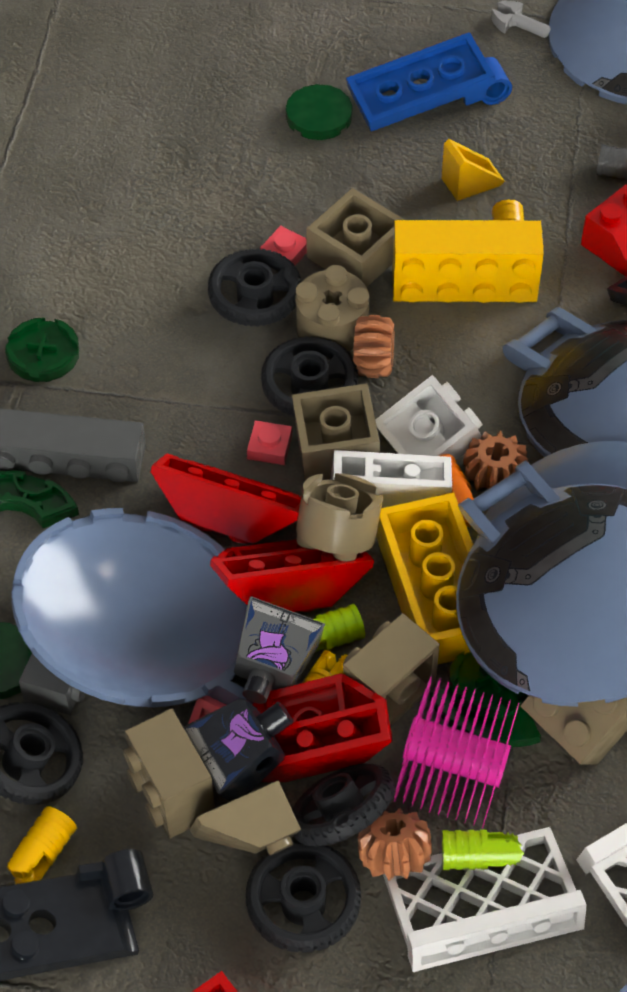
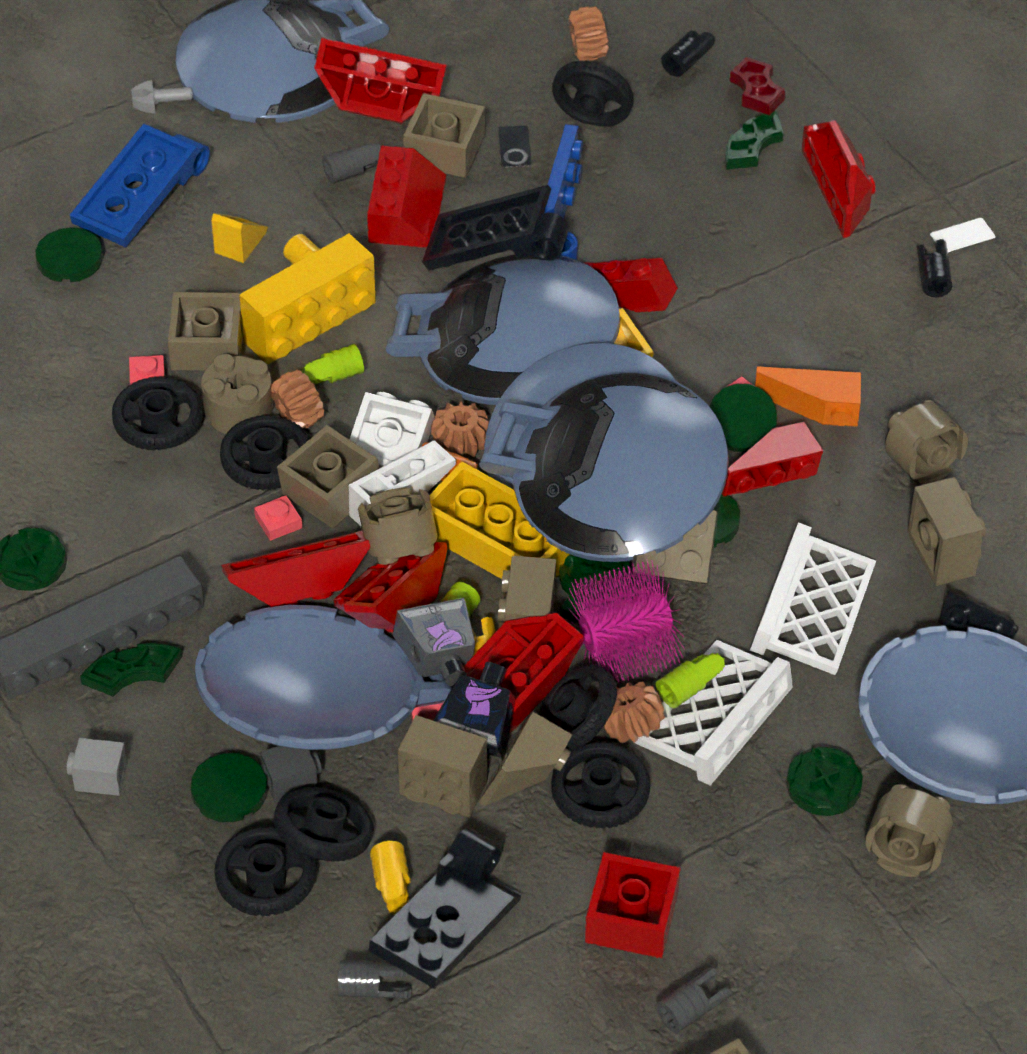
camera: 40 degrees left, 5 degrees down
(439, 335) = (335, 365): none -> lime hinge

